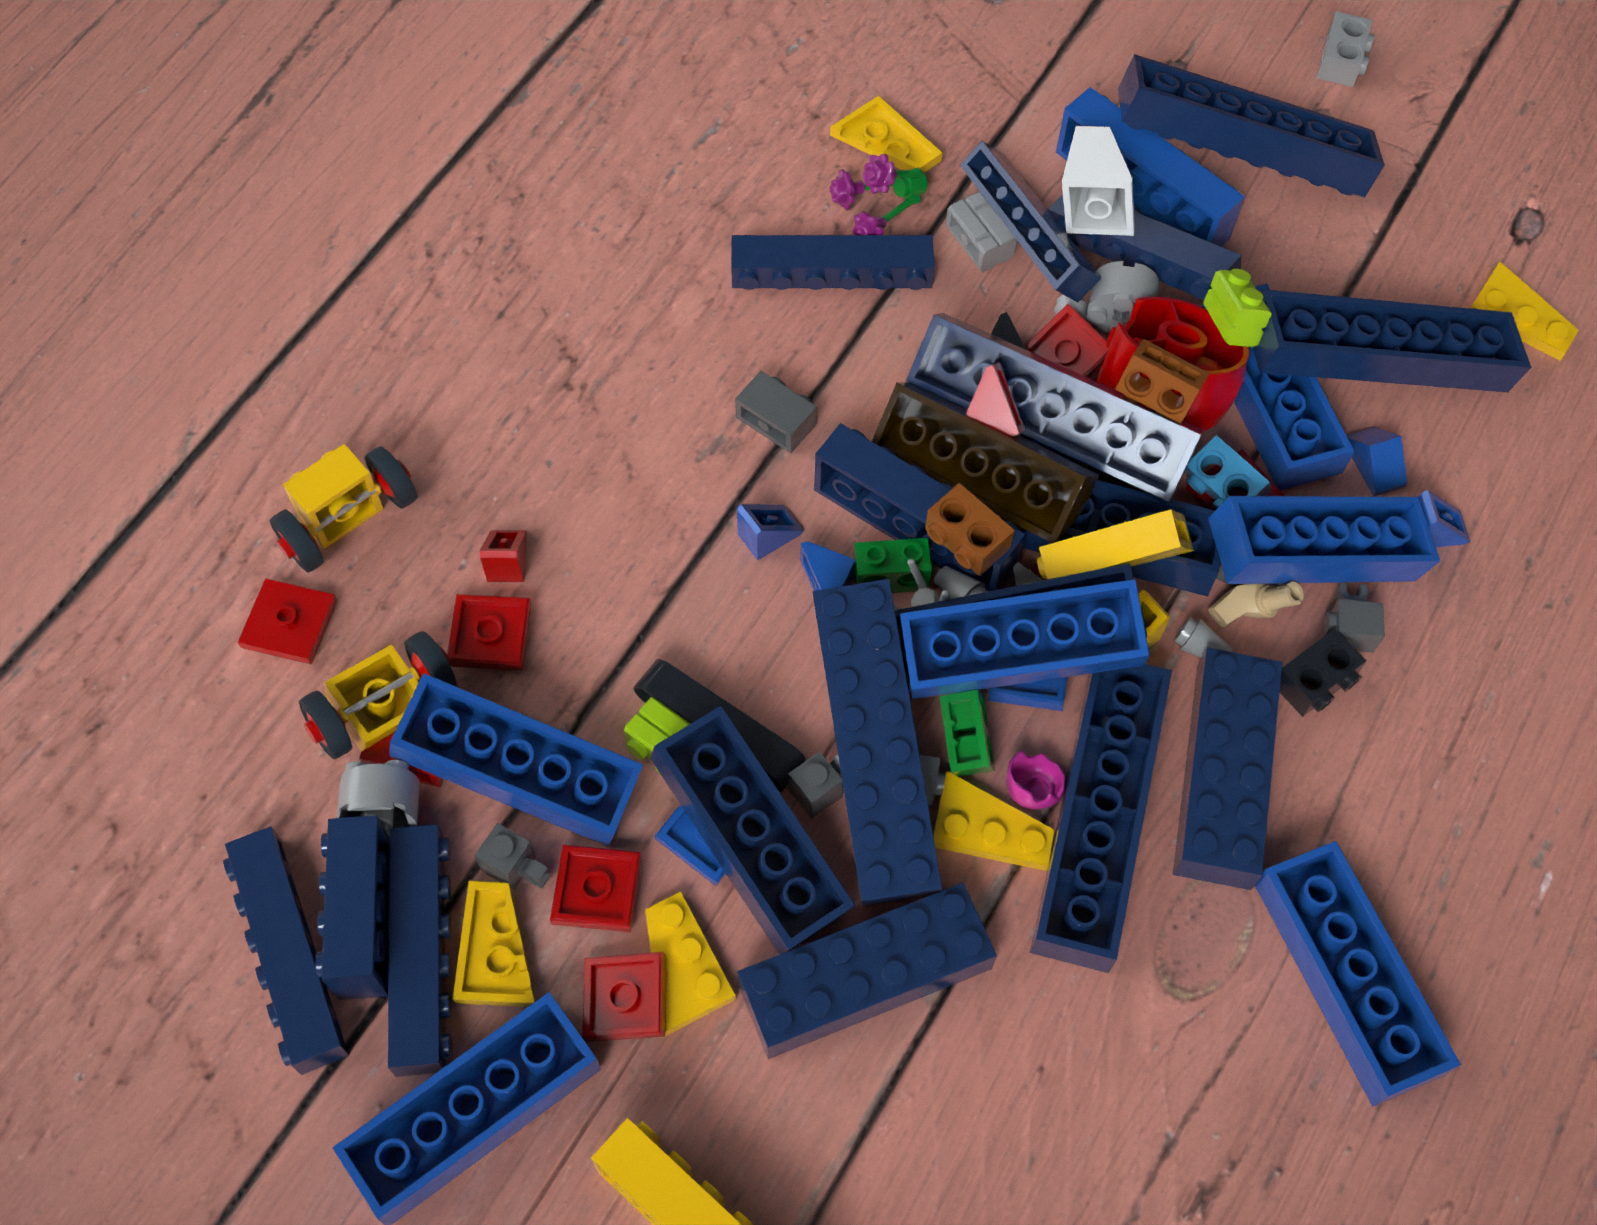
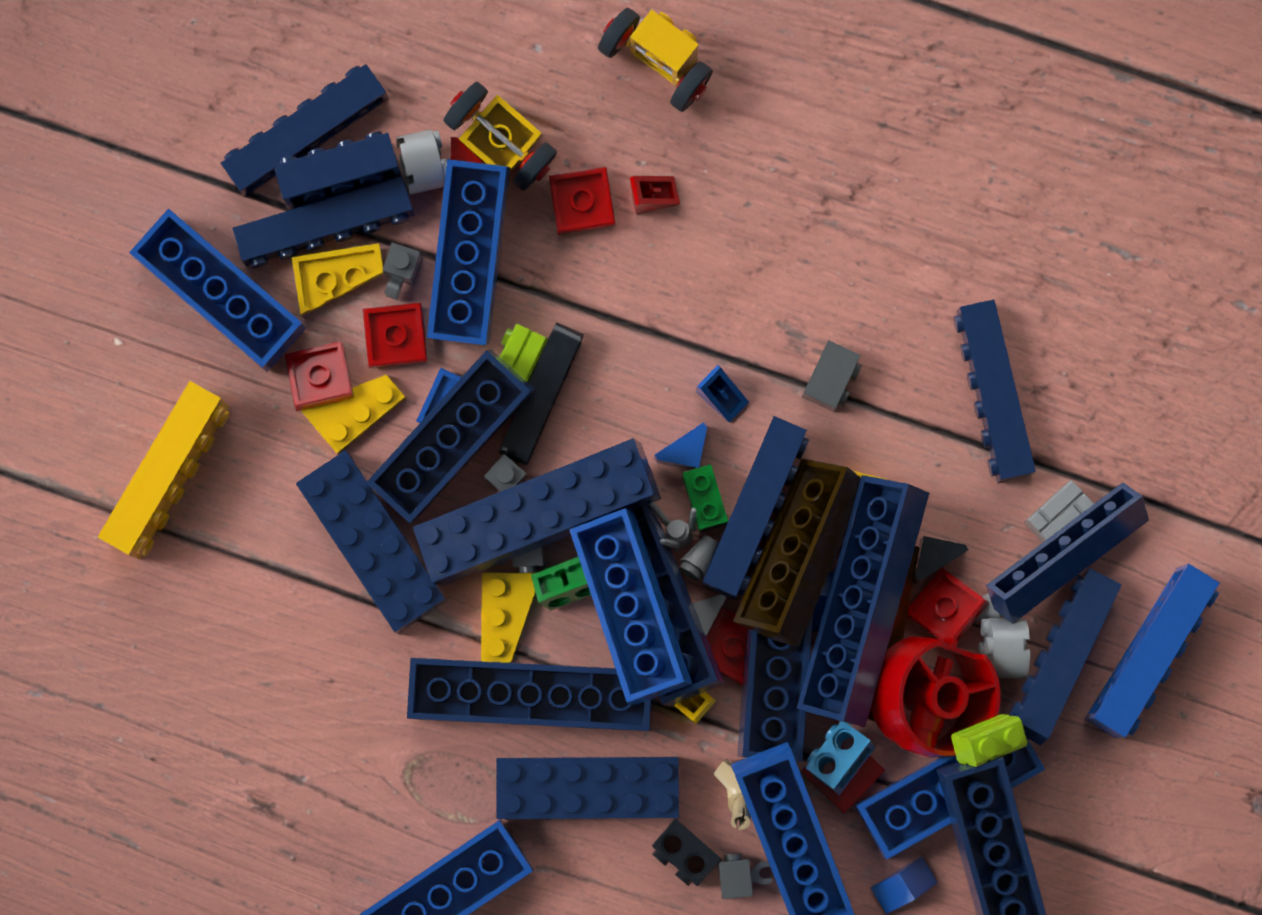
camera: 80 degrees right, 20 degrees up
(287, 621) = (560, 46): red plate -> none
(878, 177) = (1074, 412): magenta plant -> none
(882, 130) = (1149, 412): yellow wing -> none
(975, 524) = (727, 553): dark orange brick -> none
(995, 404) = (842, 552): slope -> none
(1035, 781) = (544, 641): dark pink hair -> none
(1097, 185) = (1102, 601): white slope -> none
(1129, 542) = (737, 672): yellow slope -> none
(1165, 373) = (883, 682): dark orange brick -> none
(1197, 636) = (694, 756): light grey cone -> none
(1249, 126) = (1211, 734): dark blue brick -> none

